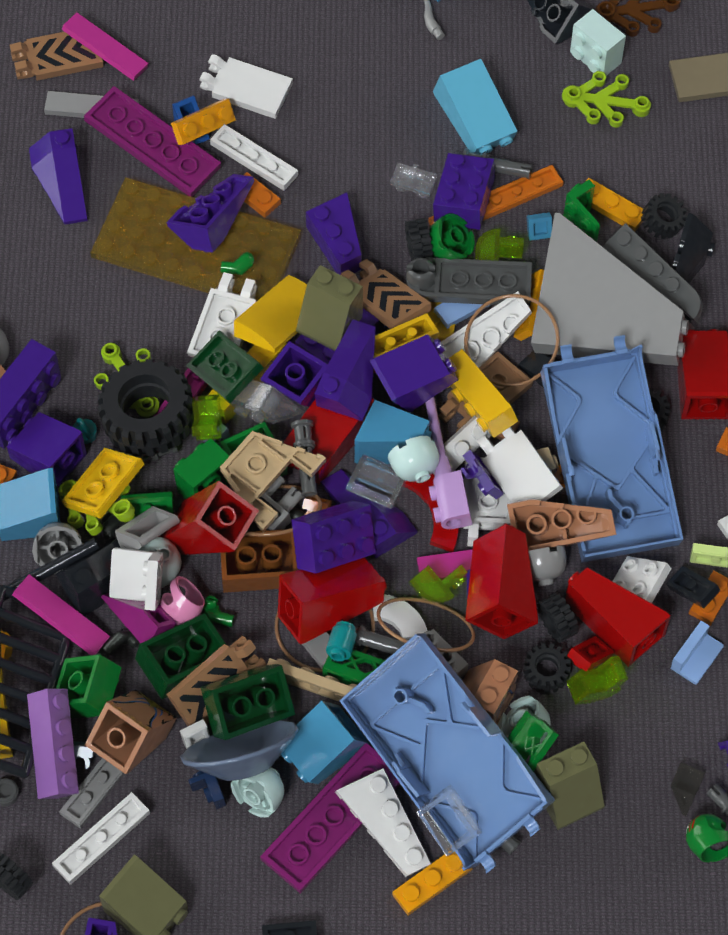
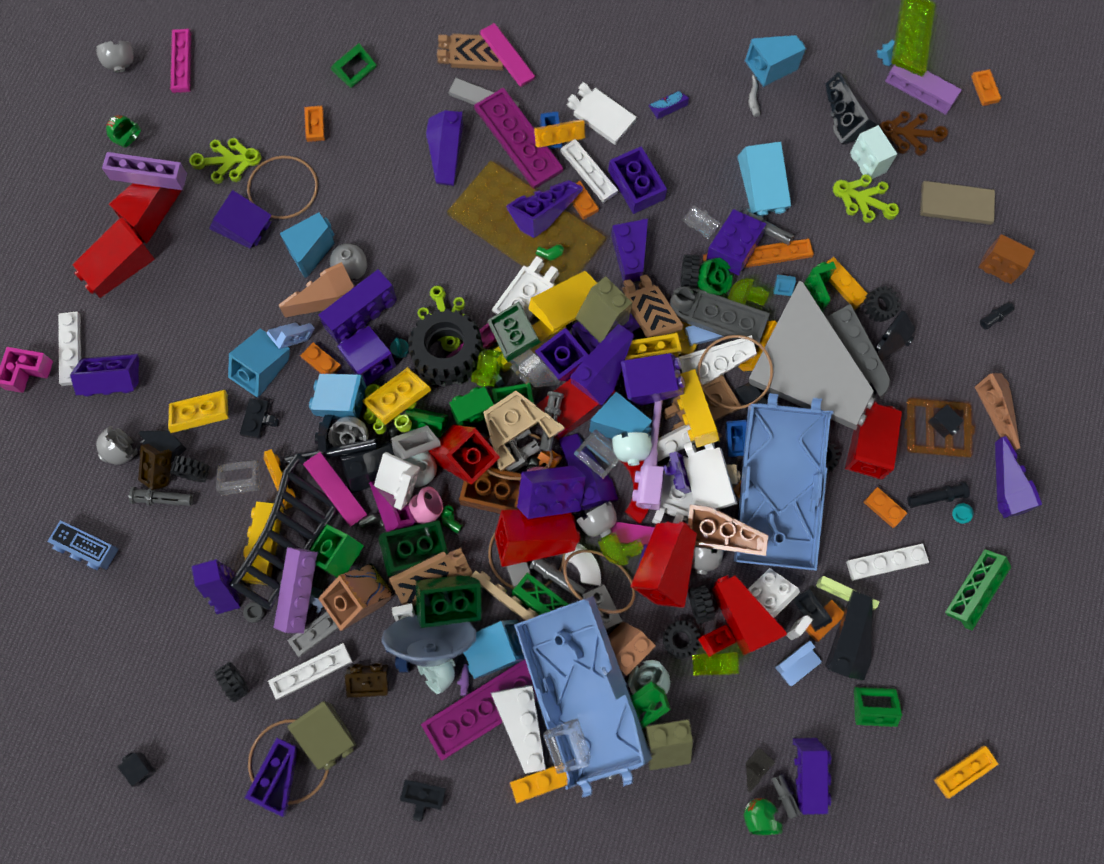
camera: 15 degrees right, 10 degrees up
(25, 554) = (321, 436): none -> black plate
(176, 828) = (366, 680): none -> dark brown bracket
(297, 793) = (464, 680): none -> medium lavender helmet
(318, 151) = (637, 180): none -> dark purple brick
(328, 53) = (669, 104): none -> dark purple slope
(341, 641) = (532, 575): teal brick -> none
(401, 558) = (599, 521): none -> light grey cylinder
(537, 417) = (735, 437): none -> blue slope
(683, 609) = (799, 627): none -> white tile

